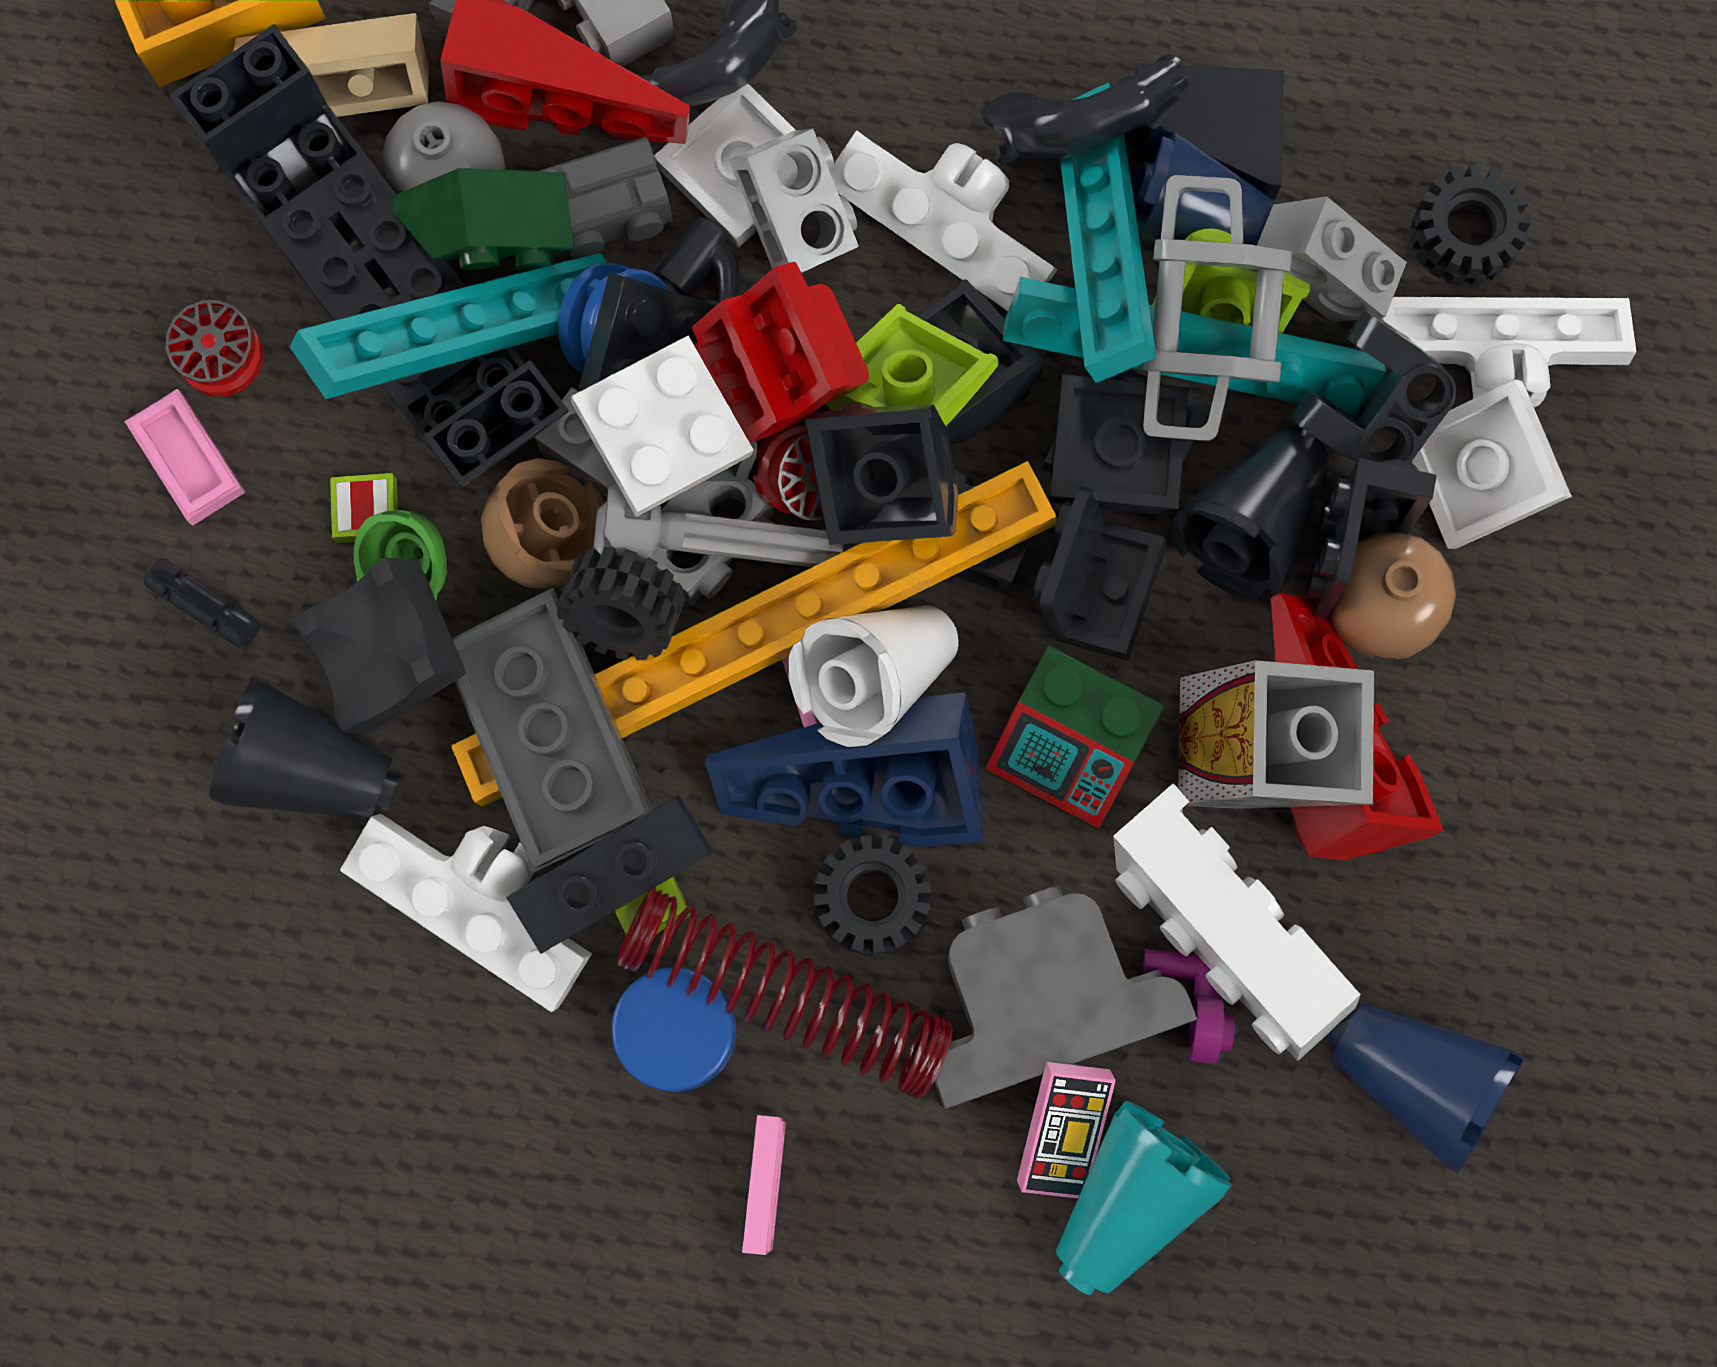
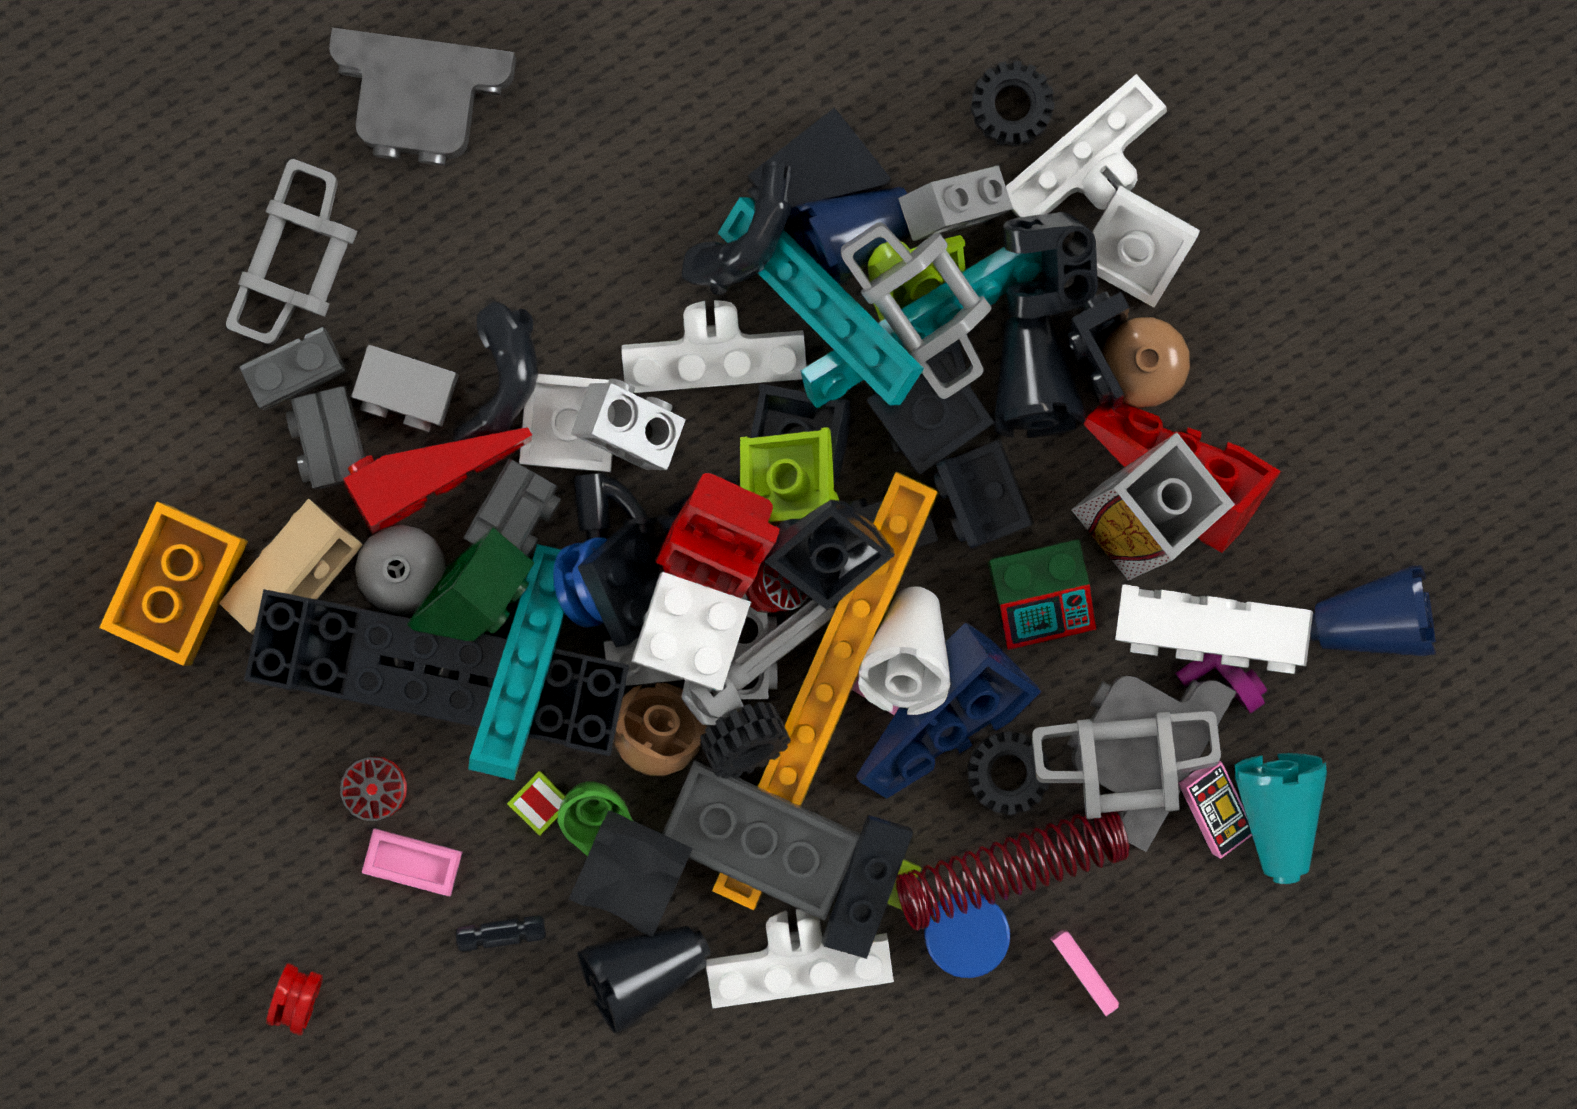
camera: 45 degrees left, 10 degrees up
(1078, 978) = (1158, 726): none -> light grey bar

